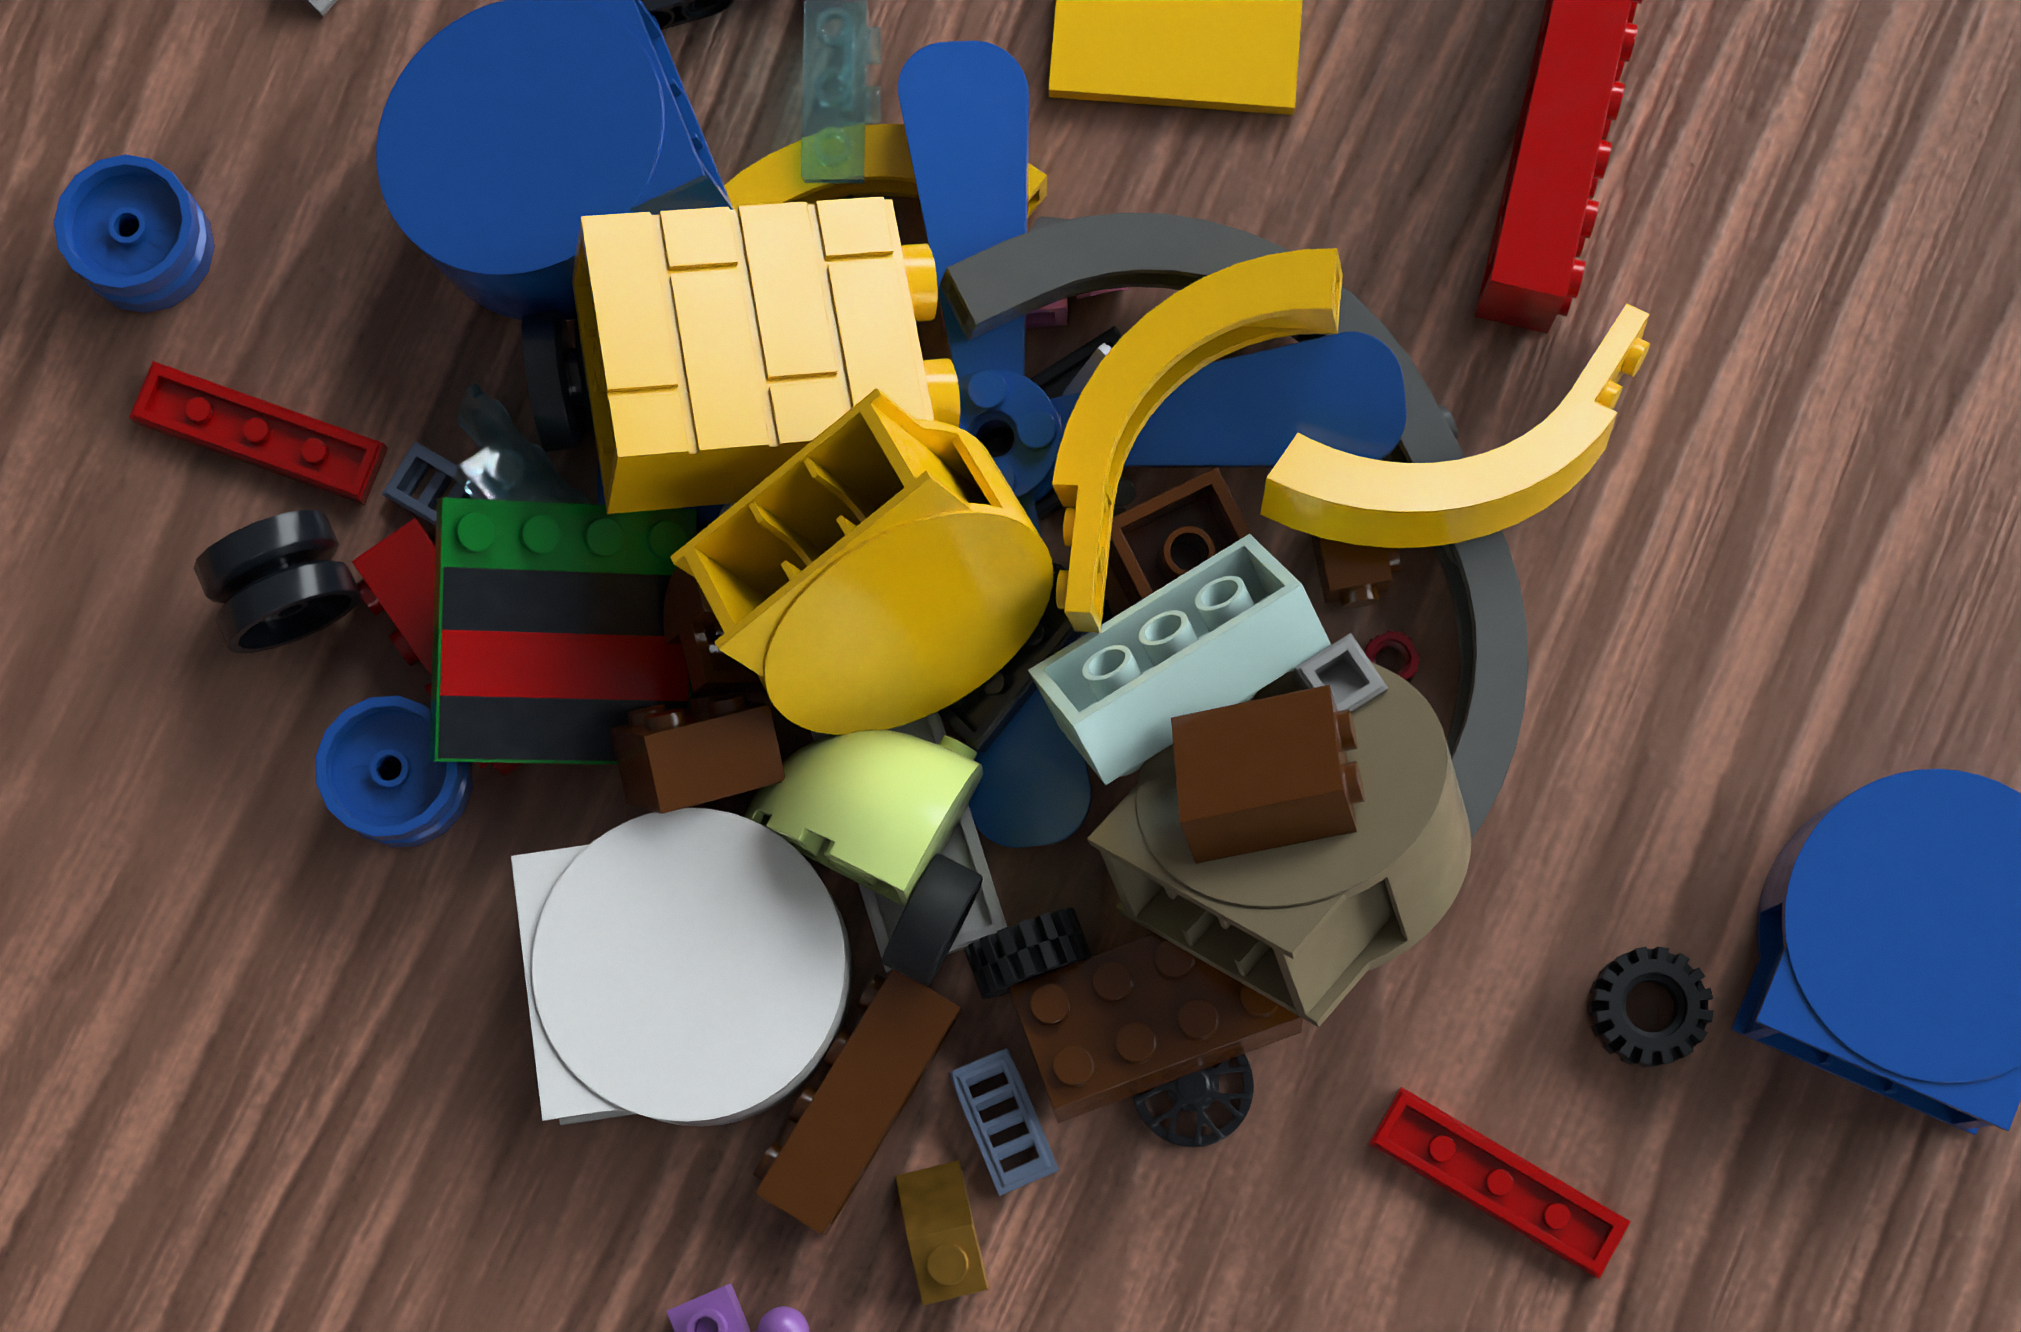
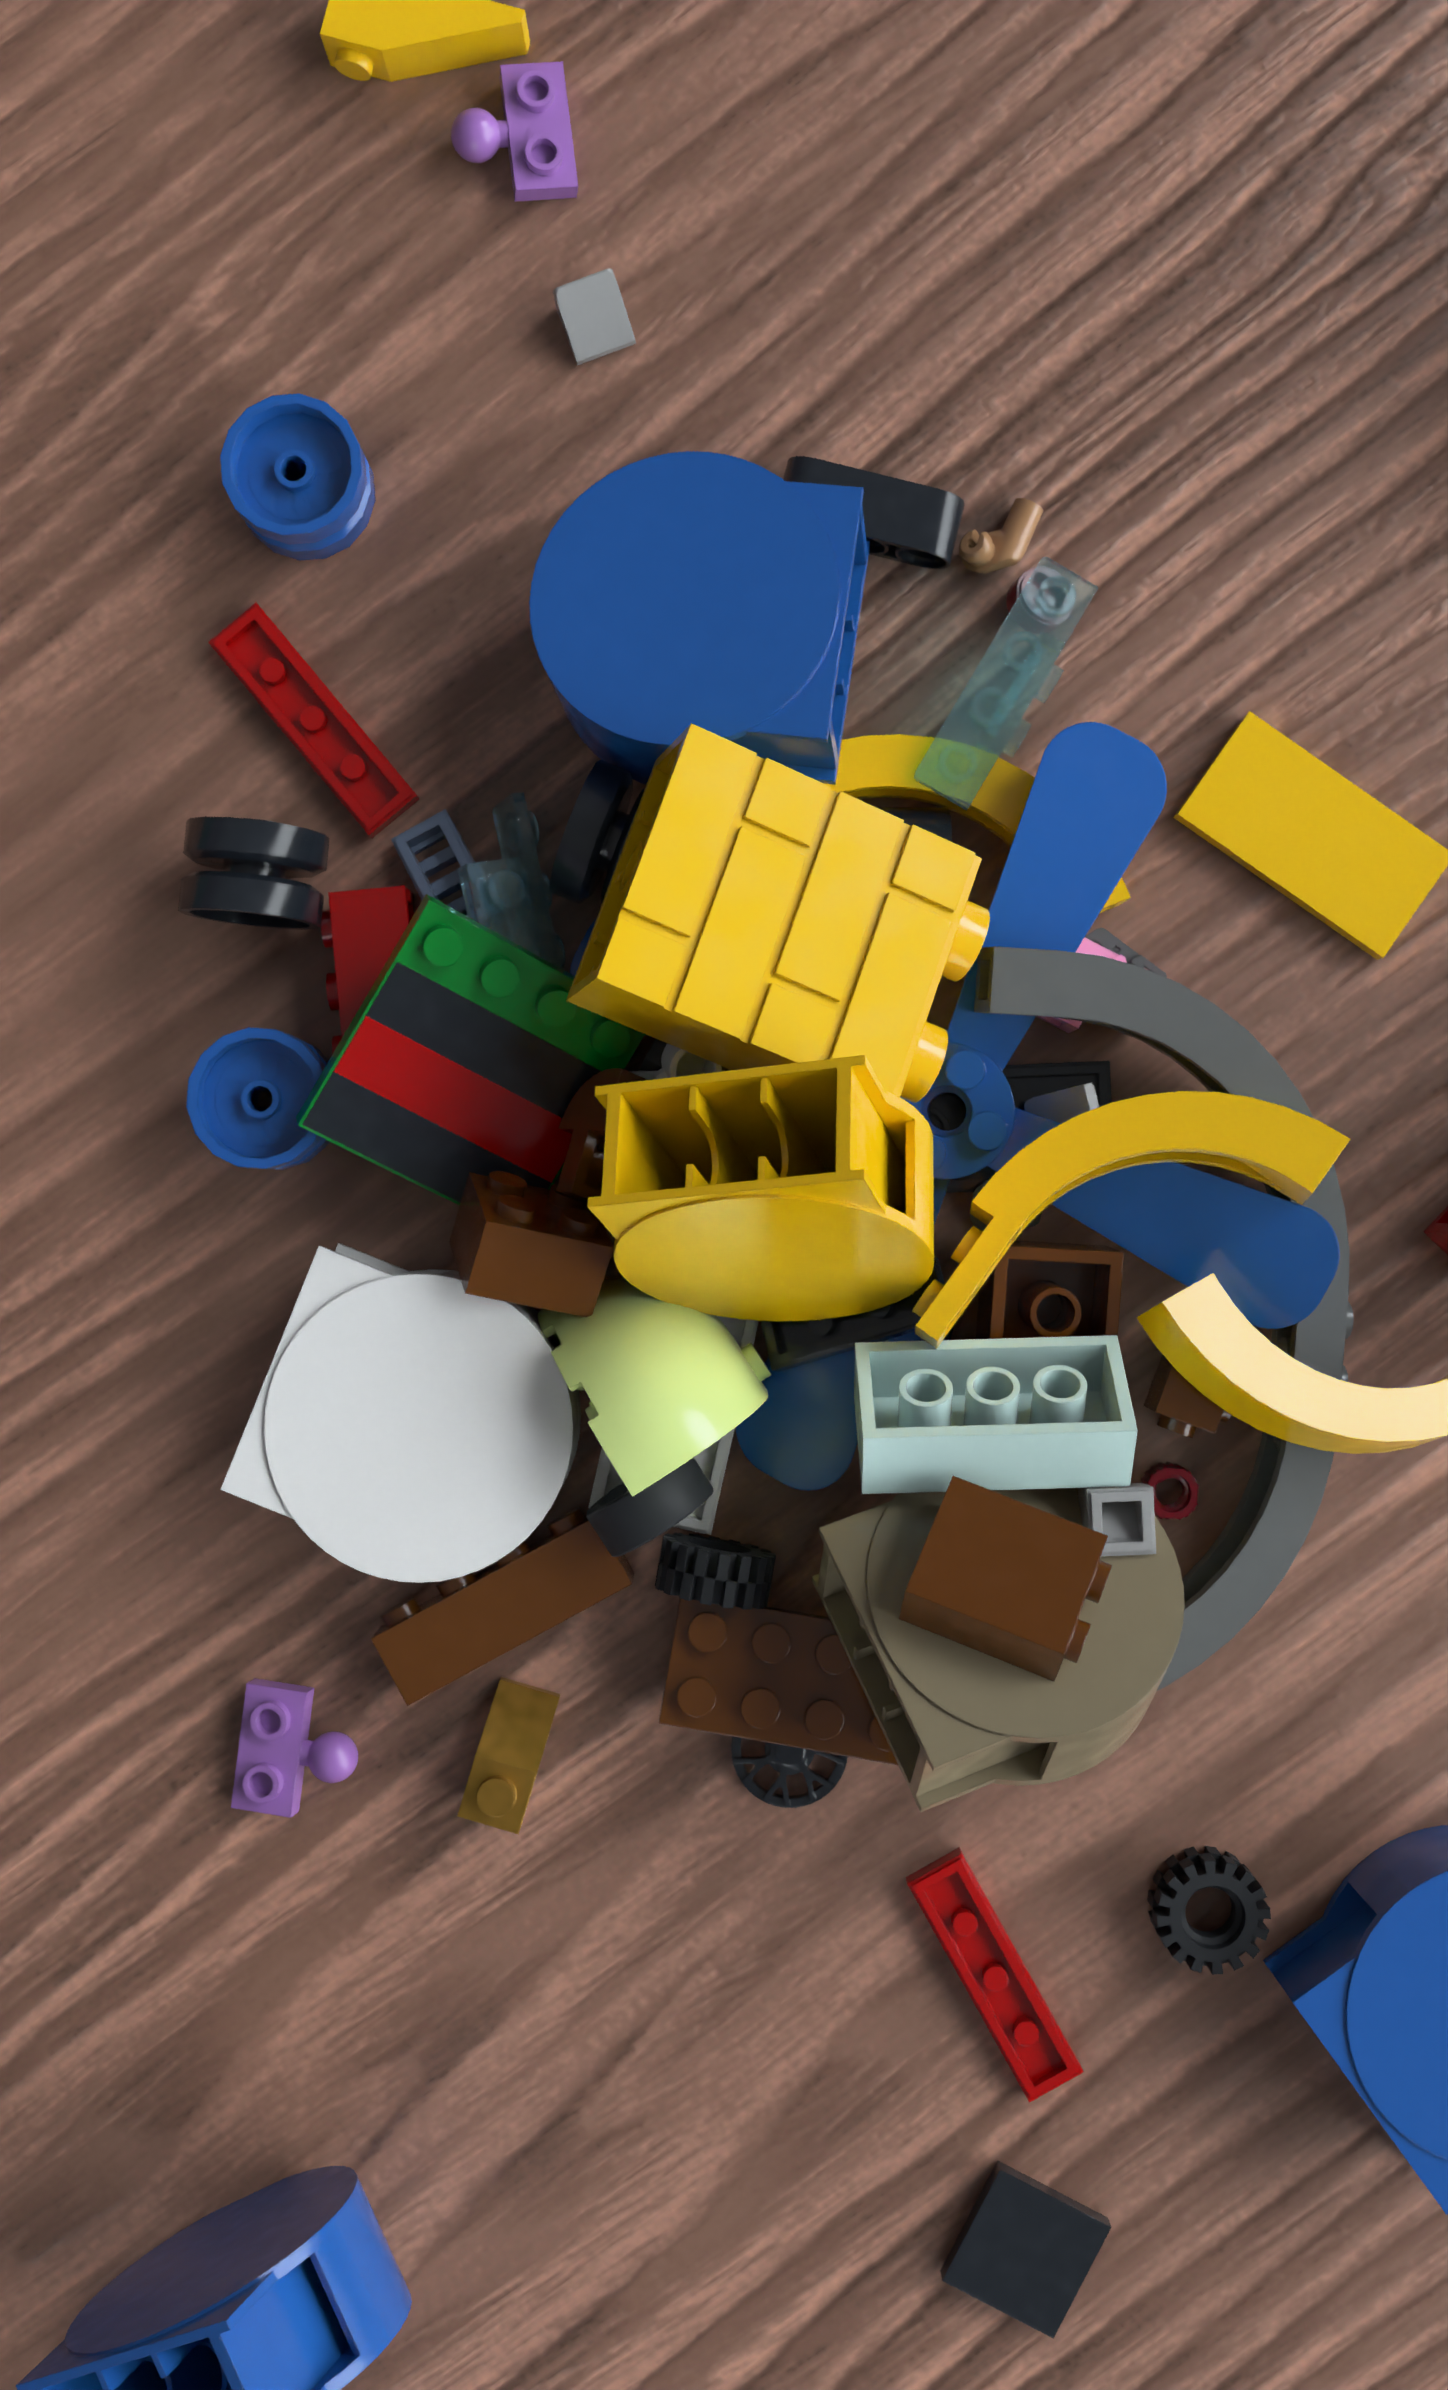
camera: 25 degrees right, 10 degrees up
(984, 1069) = (618, 1638): sand blue slope -> none

